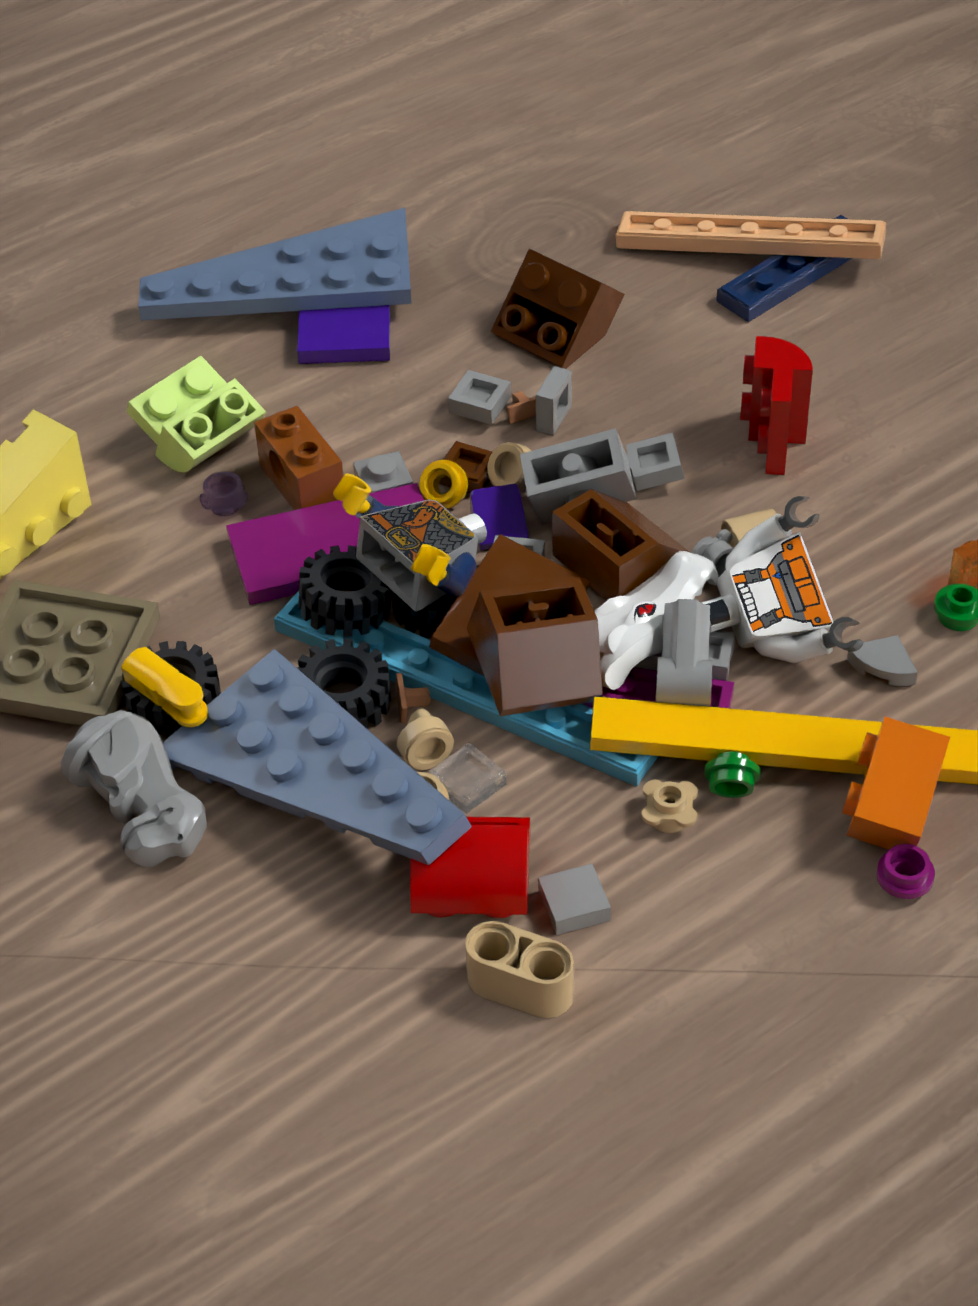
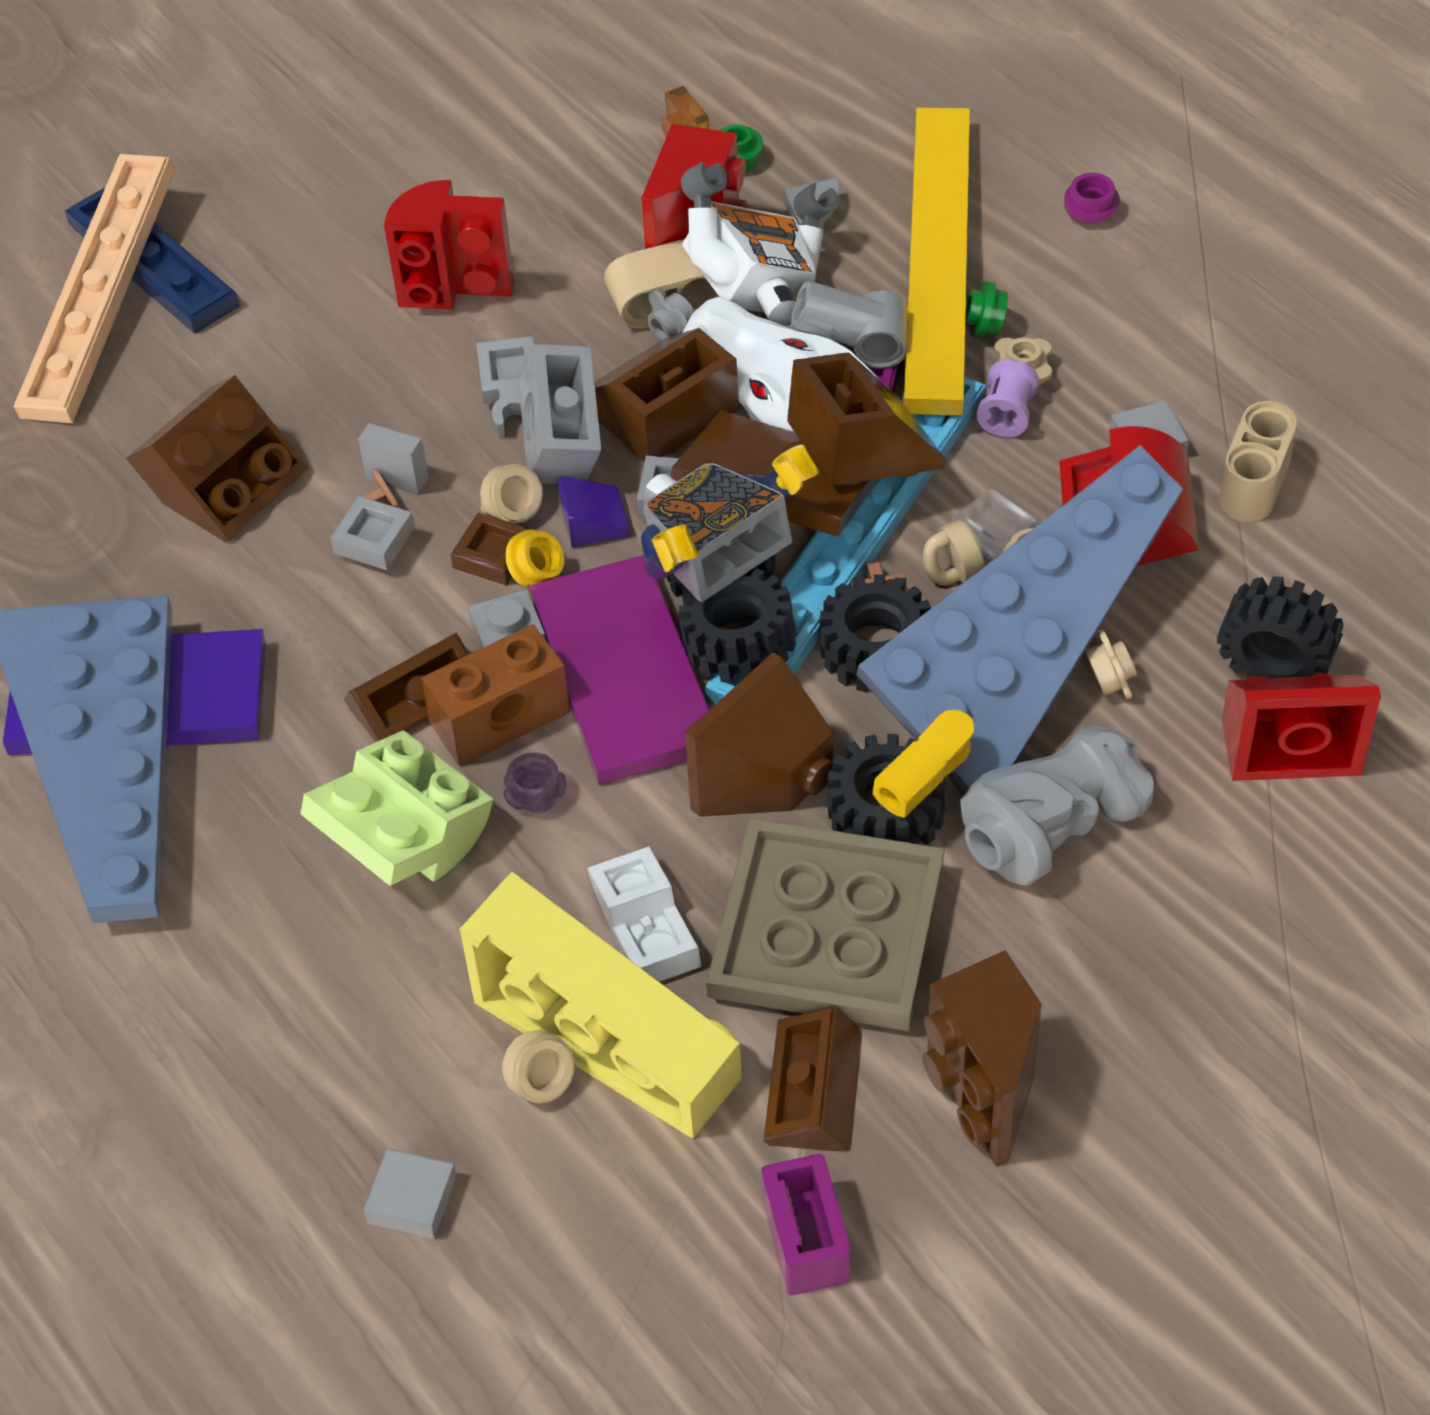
camera: 90 degrees left, 5 degrees up
(105, 556) = (644, 915): none -> white slope
(187, 953) = (1299, 726): none -> red slope
(217, 597) = (758, 747): none -> reddish brown slope
(278, 828) = (1111, 665): none -> tan plate
(279, 947) = (1264, 610): none -> black tyre
(336, 429) = (396, 697): none -> reddish brown slope
(613, 785) = (1005, 407): none -> lavender bush
(848, 546) = (664, 200): none -> red slope
(897, 784) = (1010, 181): orange brick -> none

